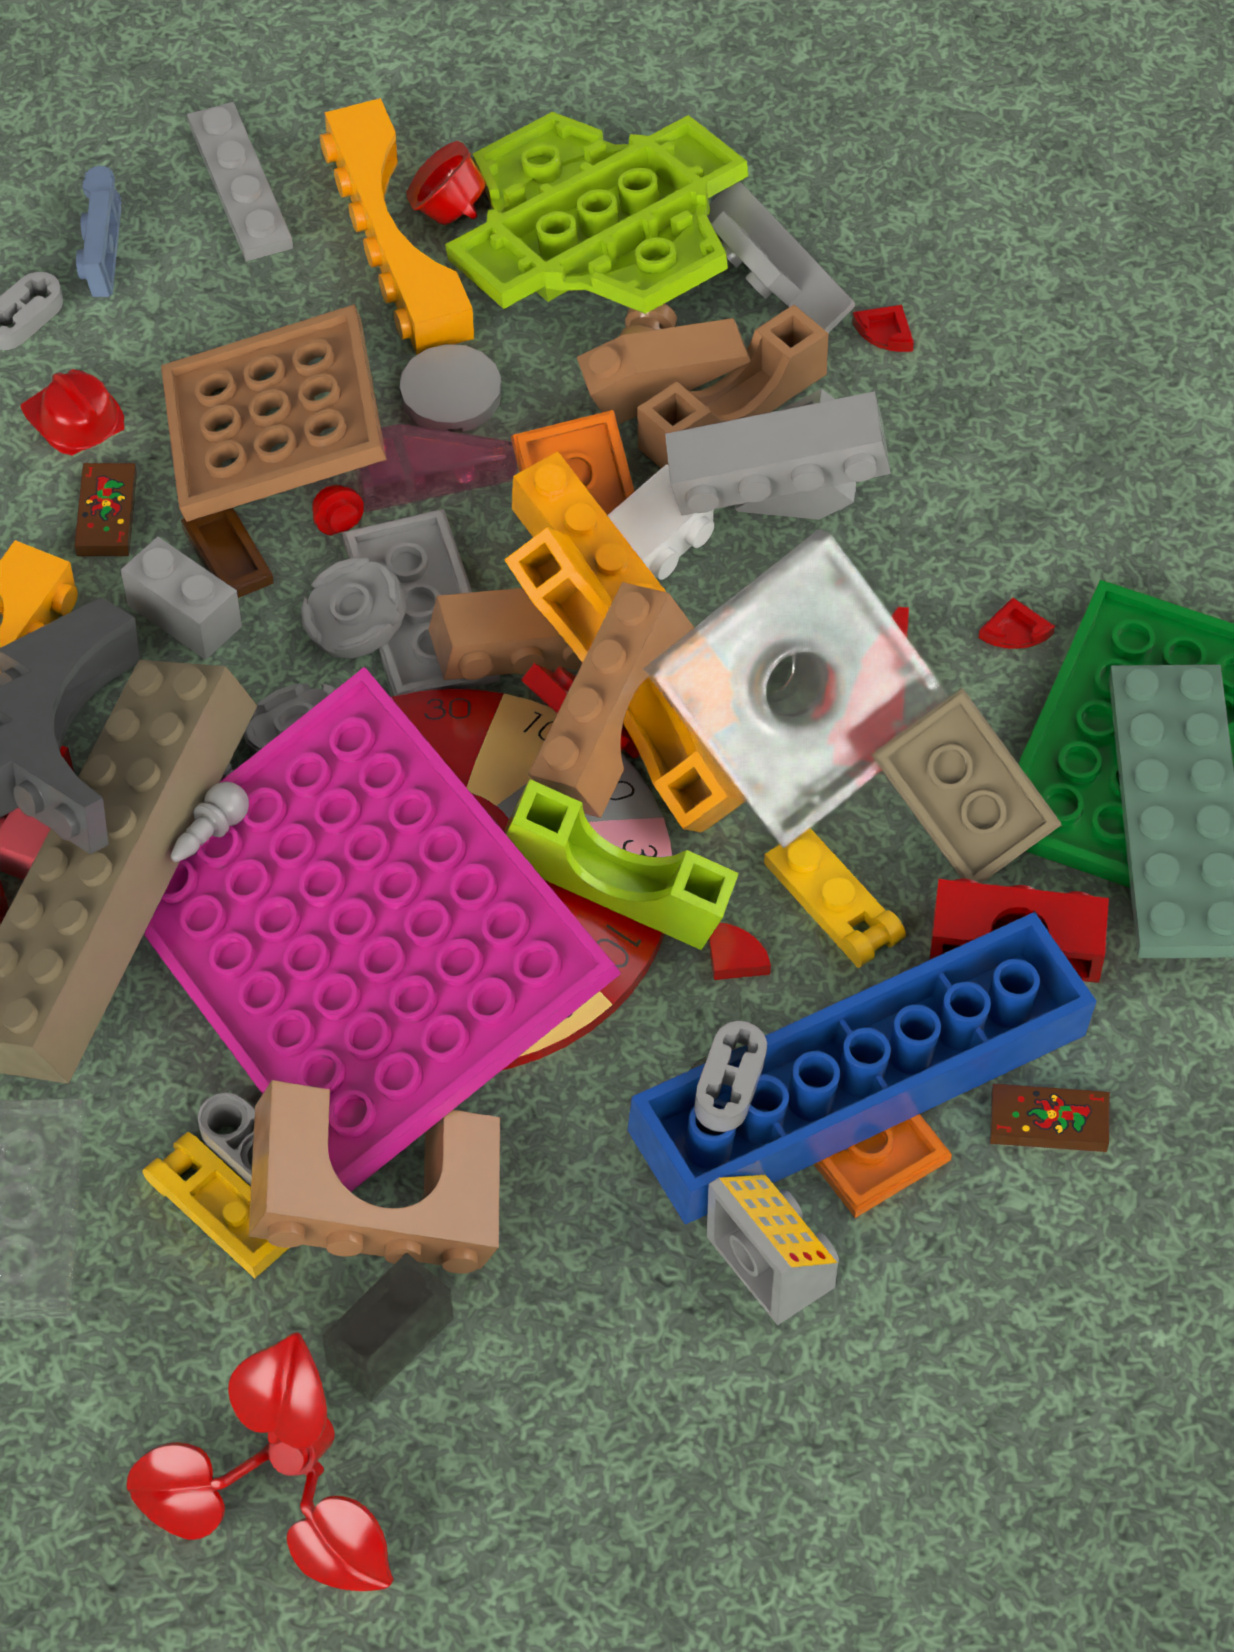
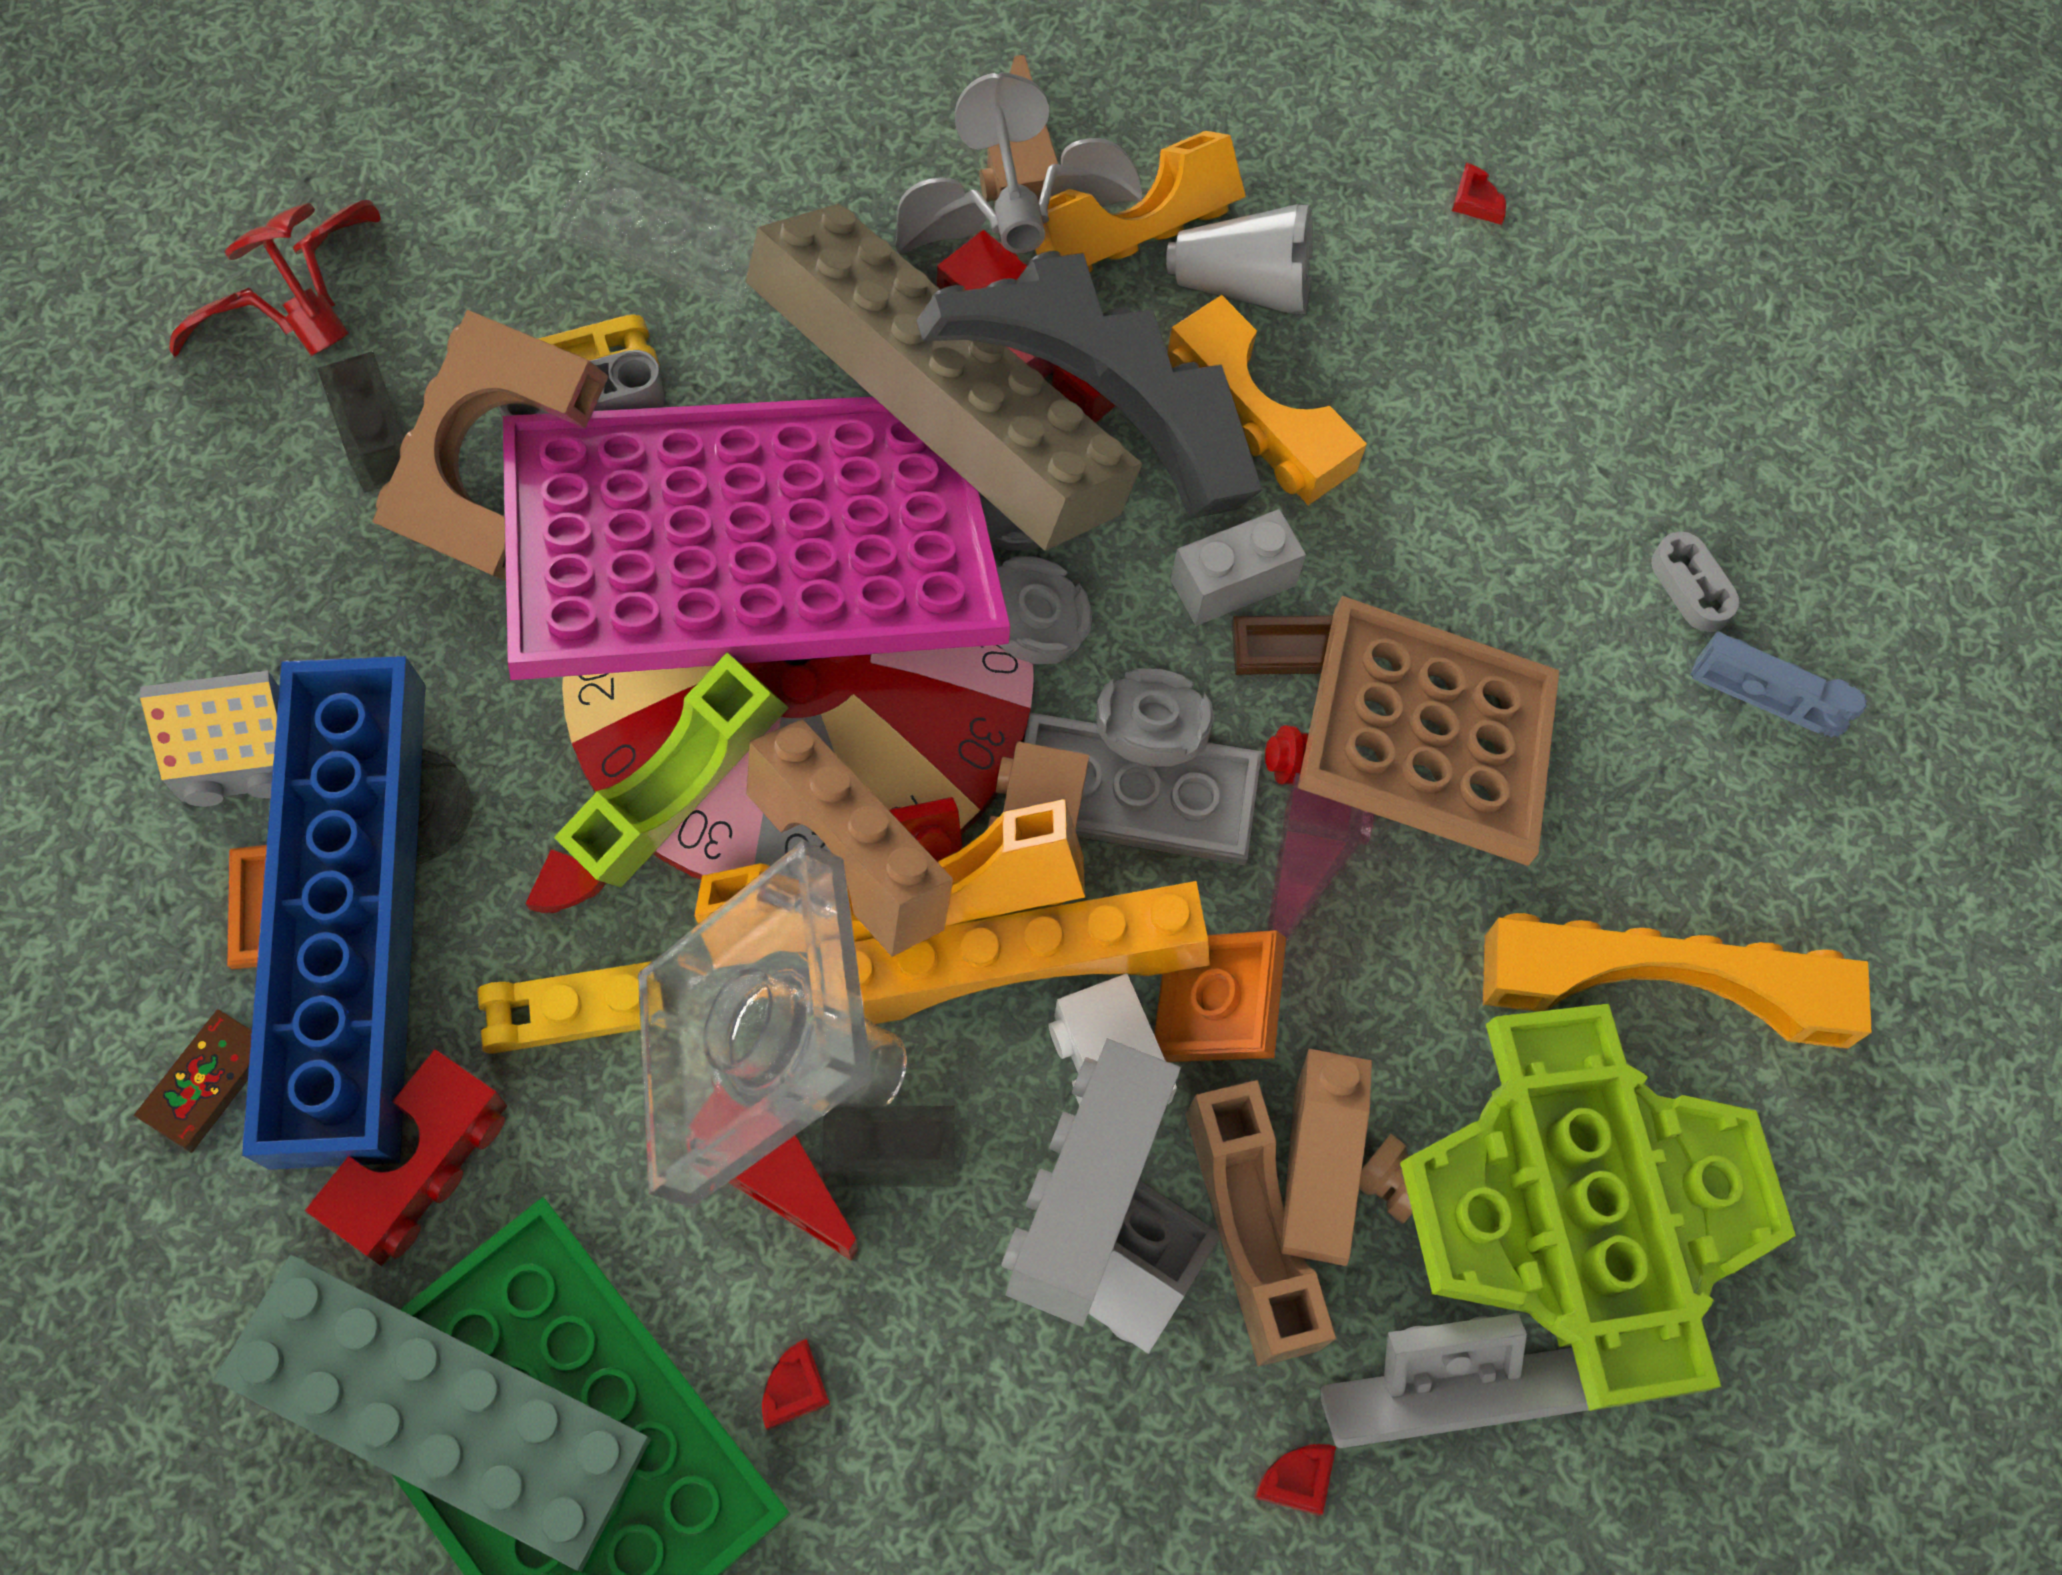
camera: 110 degrees right, 10 degrees up
(74, 412) = (1539, 583): red piece -> none
(105, 509) = (1394, 560): reddish brown tile -> none
(222, 807) = (941, 477): light grey bar -> none
(240, 181) = (1814, 858): light grey plate -> none
(447, 185) = (1711, 1058): red piece -> none
(450, 388) = (1415, 943): light grey tile -> none
(741, 1079) = (353, 751): light grey beam -> none
(965, 788) = (571, 1168): dark tan tile -> none

